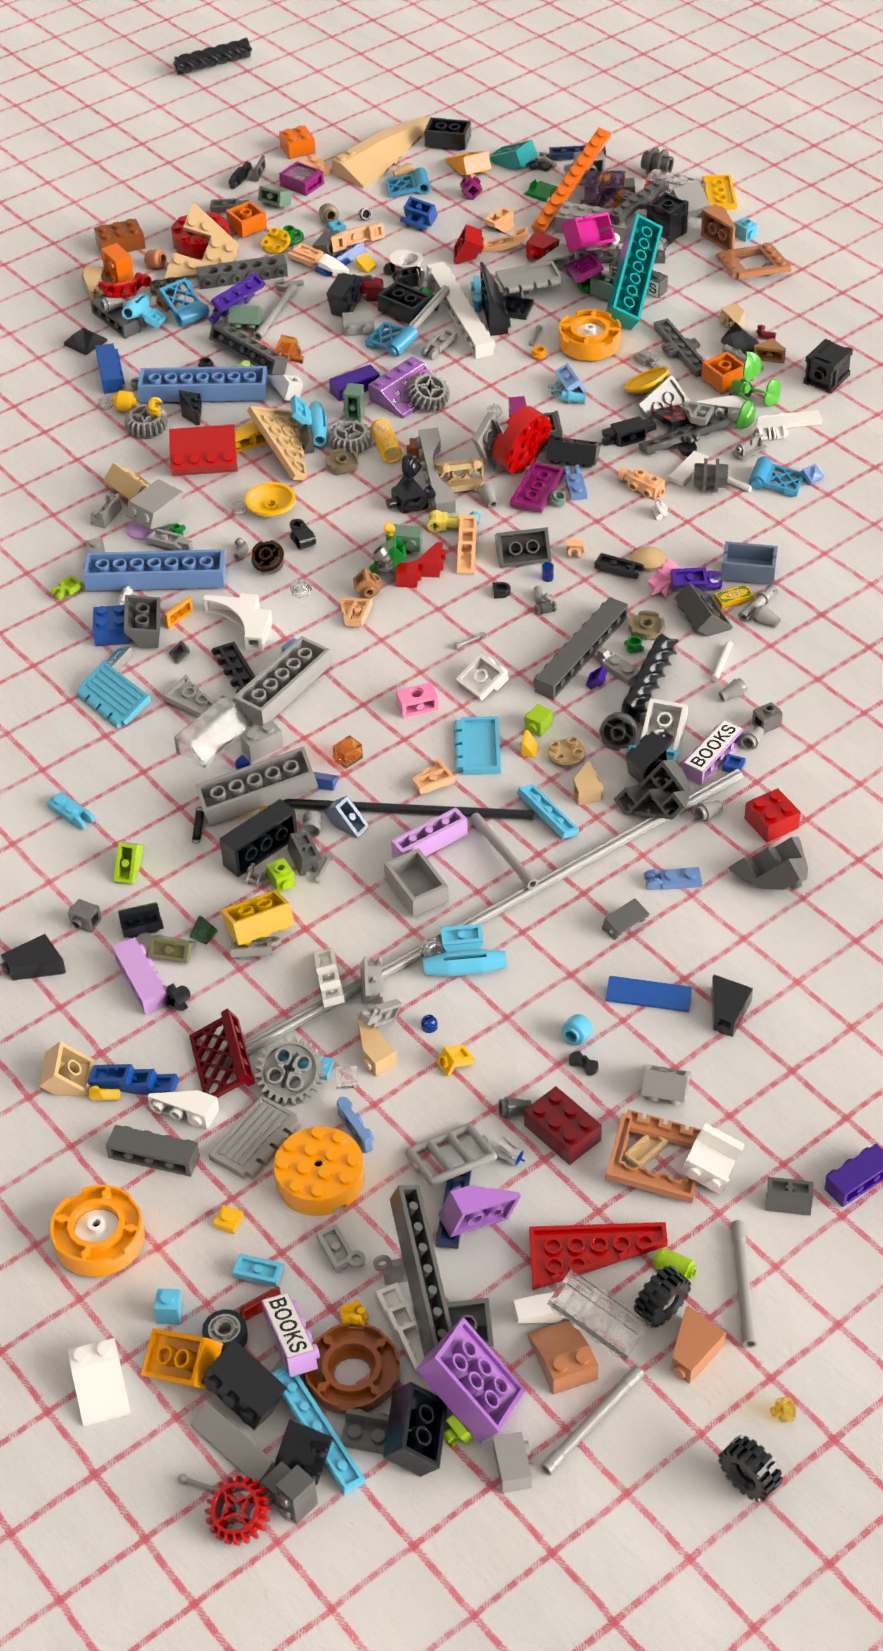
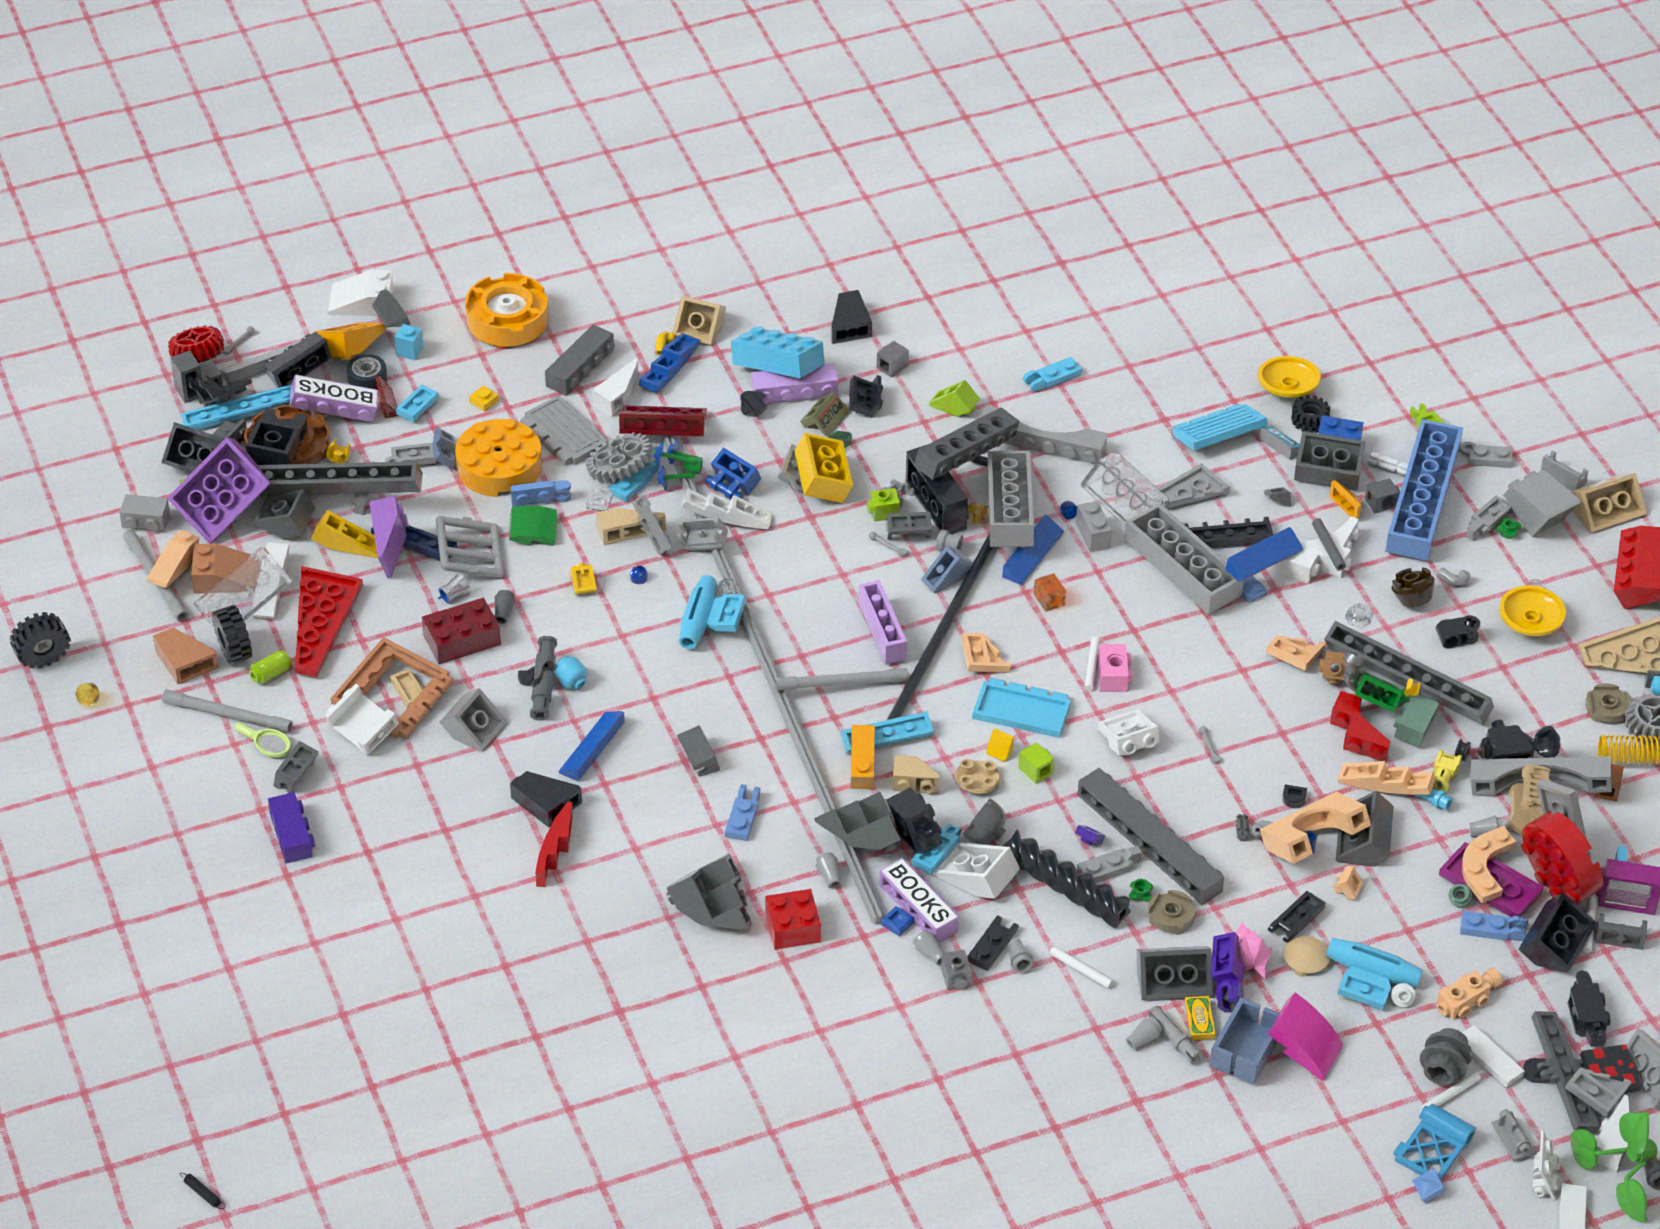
camera: 105 degrees right, 0 degrees up
(44, 660) = (1289, 376): none -> yellow dish
(81, 655) = (1309, 405): none -> black tyre
(115, 984) = (777, 352): none -> medium azure brick
(137, 1325) = (389, 310): none -> dark grey slope
(154, 823) = (1080, 445): none -> light grey arch
(168, 594) = (1382, 495): none -> dark grey brick
(213, 812) = (966, 443): none -> dark grey brick
(243, 601) = (1328, 544): none -> dark grey piece
(273, 629) = (1263, 554): none -> blue slope
(278, 981) = (735, 471): none -> blue brick
(294, 1019) = (692, 463): none -> plant
(311, 1224) = (443, 447): none -> sand blue slope
(359, 547) = (1401, 668): none -> dark grey brick
(378, 1354) = (275, 439): none -> black brick
(397, 1118) = (534, 524): none -> green slope
(412, 717) = (1092, 663): none -> white bar
(416, 882) = (821, 596): light grey piece -> none
(420, 512) = (1463, 749): none -> black bush
(476, 1263) = (344, 536): none -> yellow slope
(518, 490) = (1476, 859): none -> light nougat plate
(552, 579) = (1287, 835): none -> light nougat arch
(574, 1397) = (174, 559): none -> light nougat slope
(580, 1046) = (543, 678): none -> dark grey piece
(587, 812) = (862, 757): none -> light orange slope
(646, 524) = (1370, 971): none -> medium azure plate
(725, 709) = (991, 944): none -> black hinge
(731, 534) = (1306, 1036): none -> dark pink slope
(764, 1233) = (267, 741): none -> yellowish green piece
(782, 983) = (555, 841): none -> red slope

